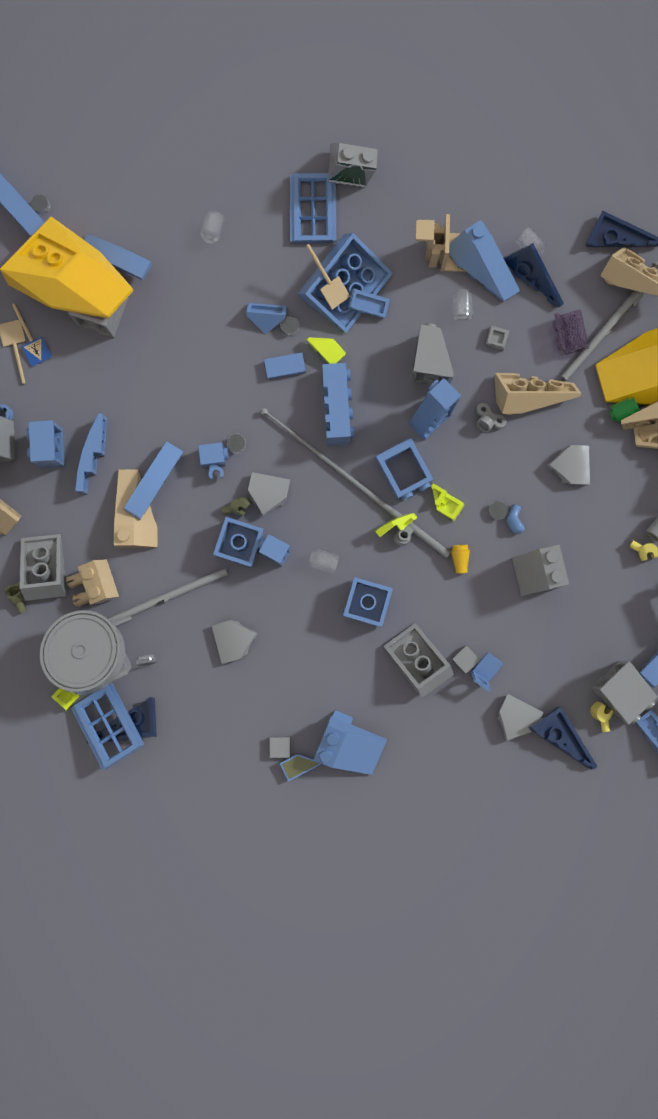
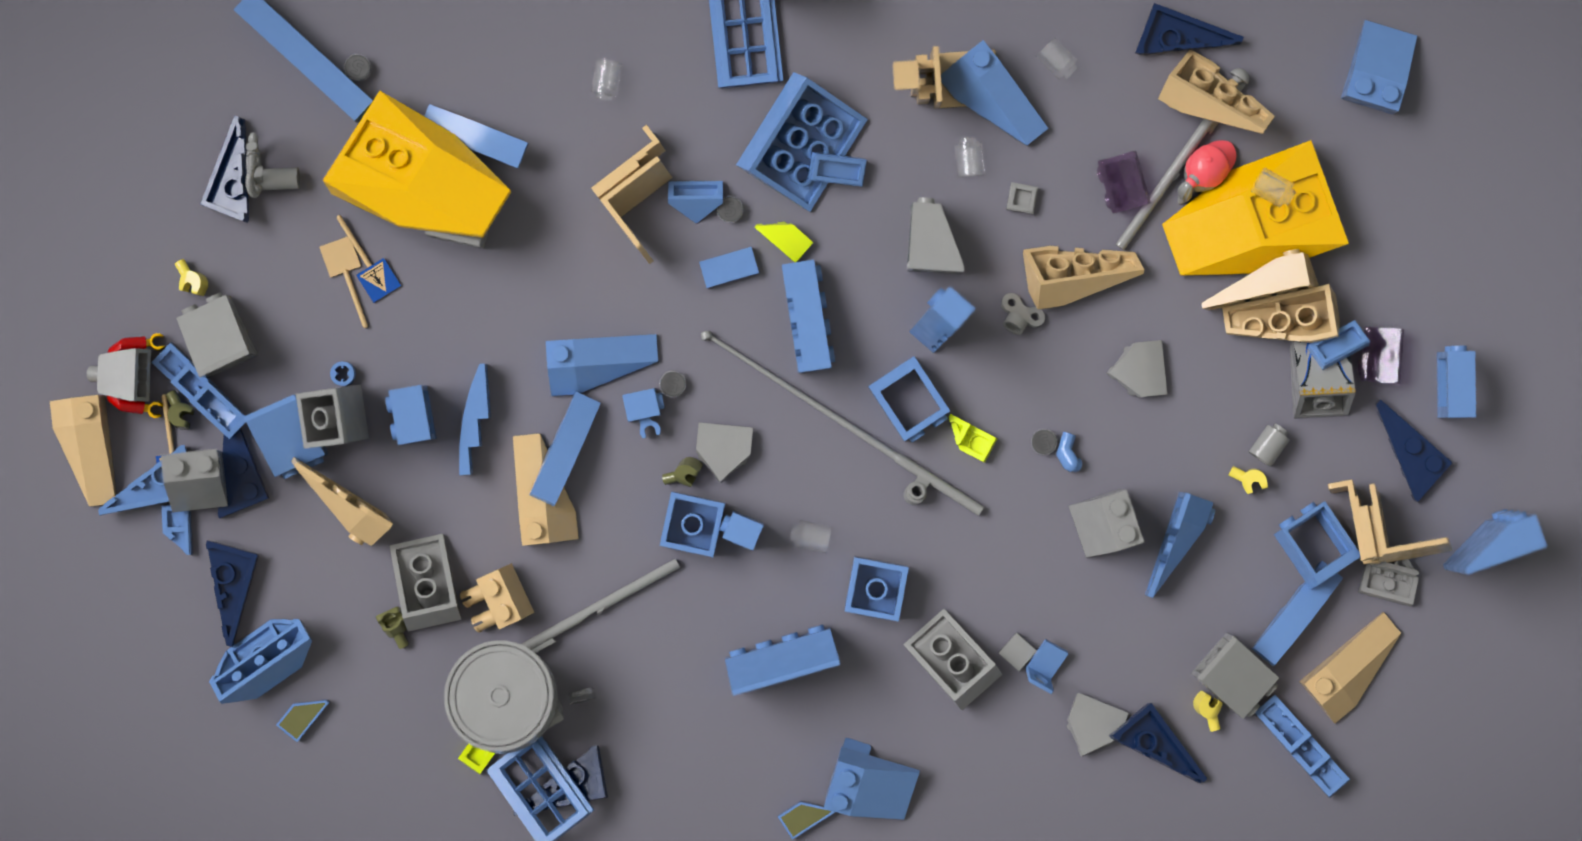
camera: 10 degrees left, 5 degrees up
(182, 421) = (590, 362): none -> medium blue wedge
(223, 299) = (633, 183): none -> tan piece
(232, 640) = (696, 657): light grey slope -> none
(279, 747) = (775, 795): light grey tile -> none
(293, 647) = (781, 660): none -> medium blue slope
(334, 291) = (789, 159): tan piece -> none
(400, 521) = (910, 473): neon yellow slope -> none
(460, 557) = (997, 513): yellow cone -> none
(530, 267) = (1064, 101): dark blue wing -> none
(597, 577) = (1184, 527): none -> medium blue wedge
(623, 409) = (1205, 286): green brick -> none
(629, 329) = (1207, 168): none -> coral hair

